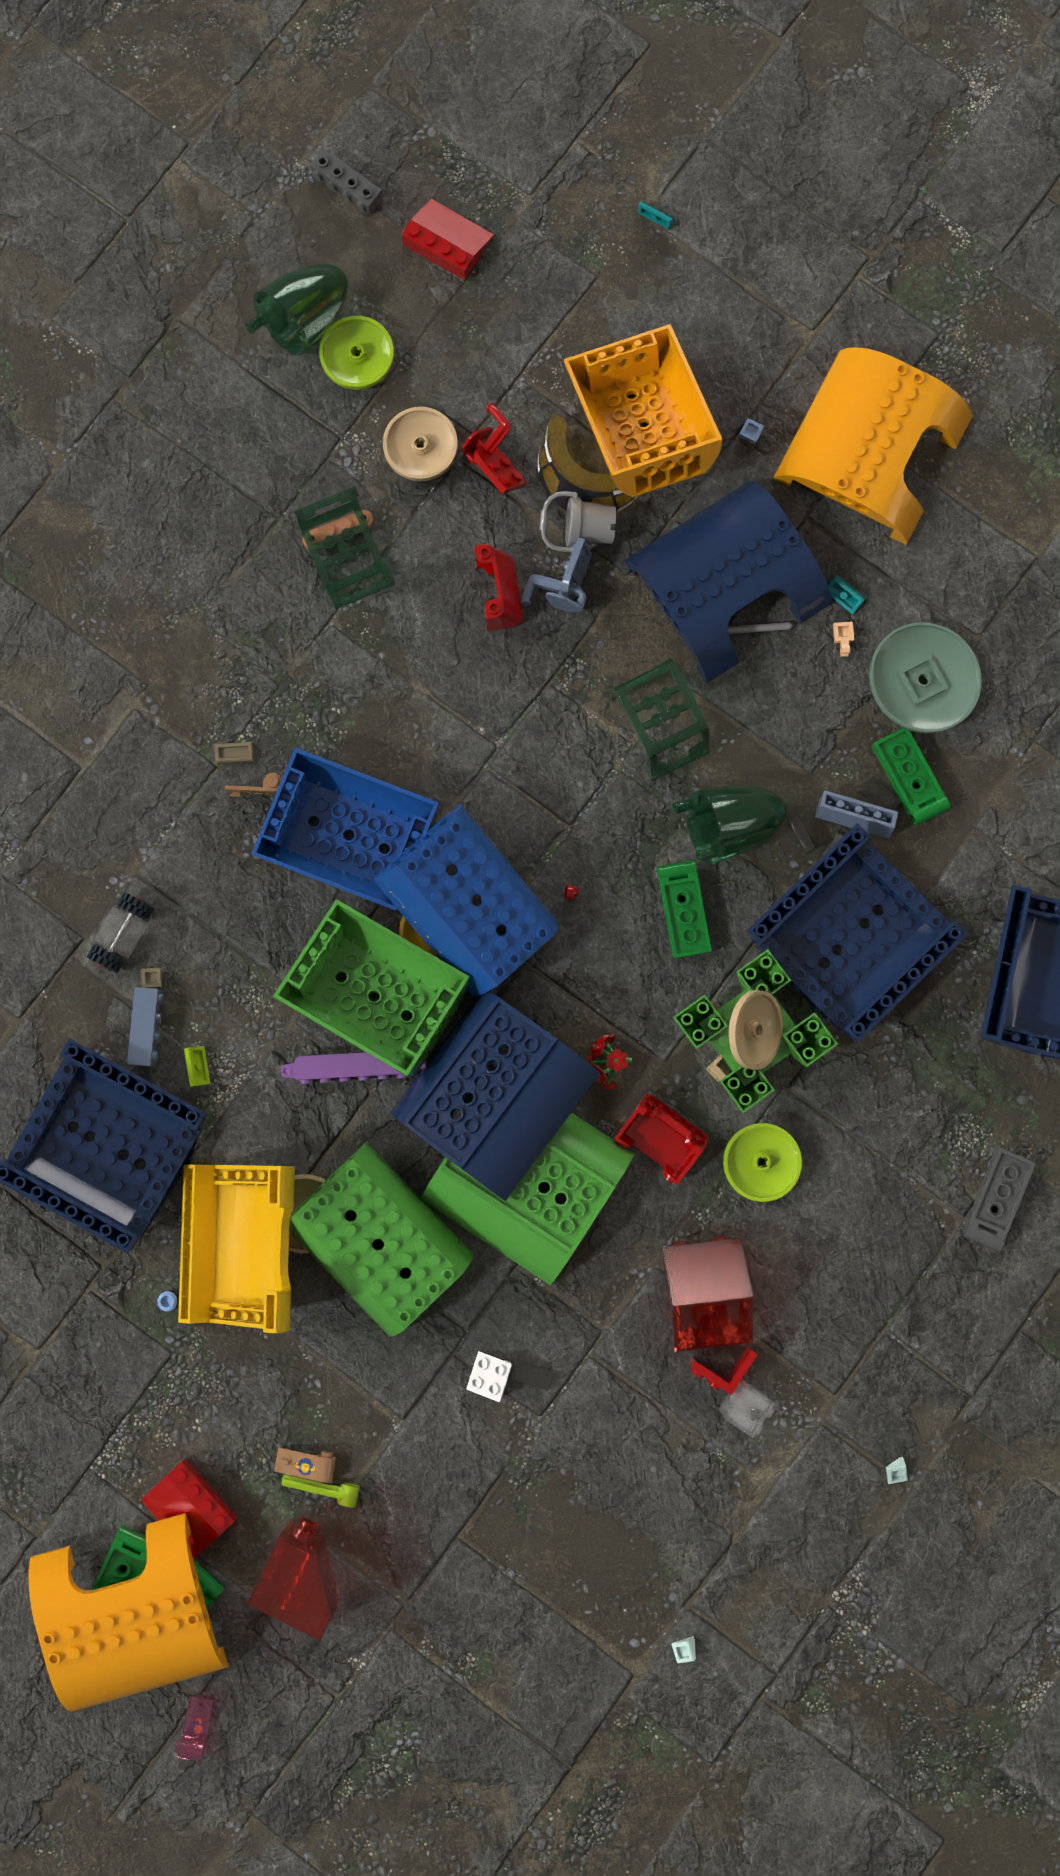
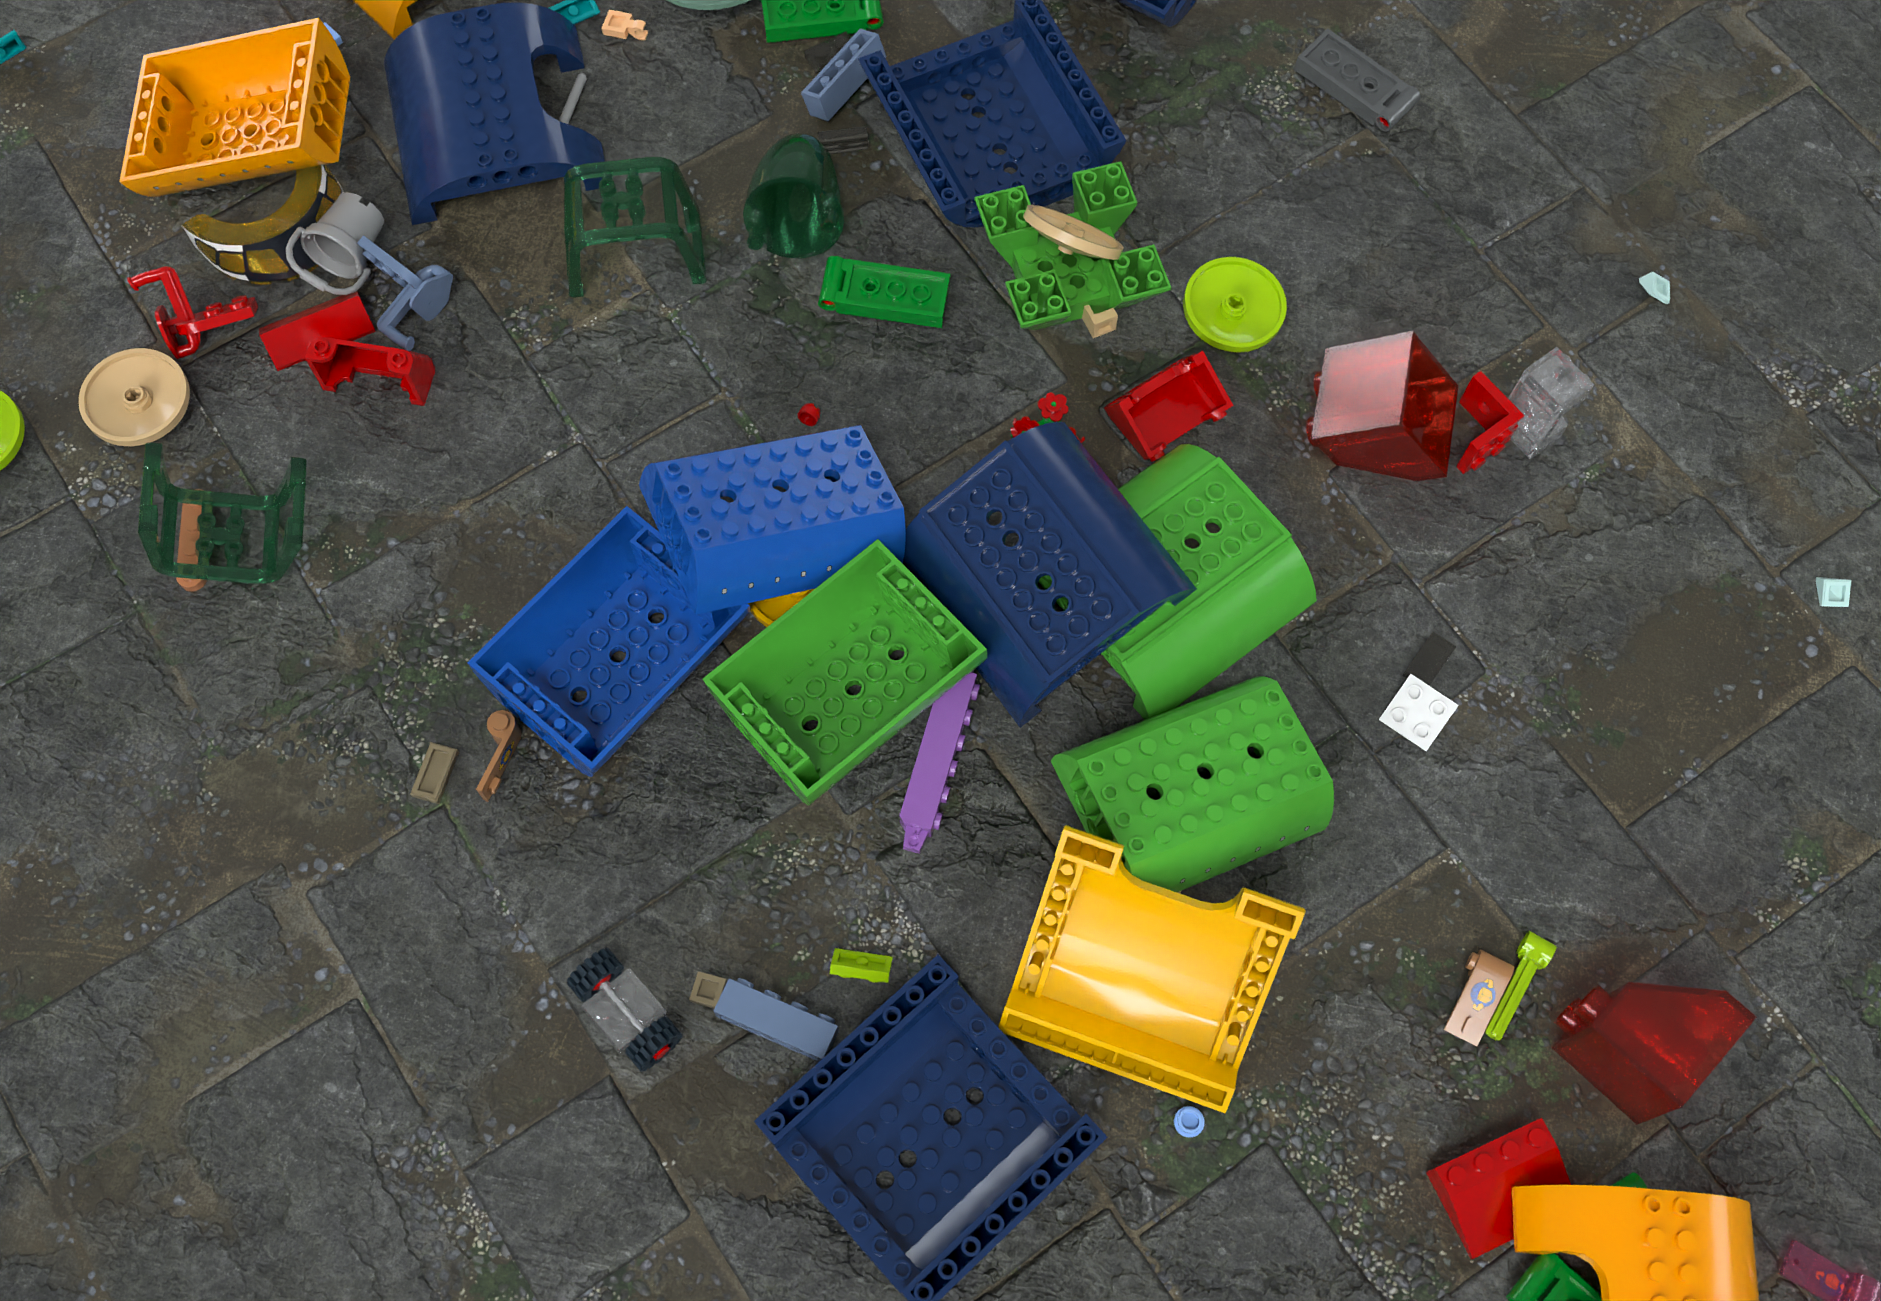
camera: 75 degrees left, 15 degrees down
(516, 534) = (337, 319): none -> red slope

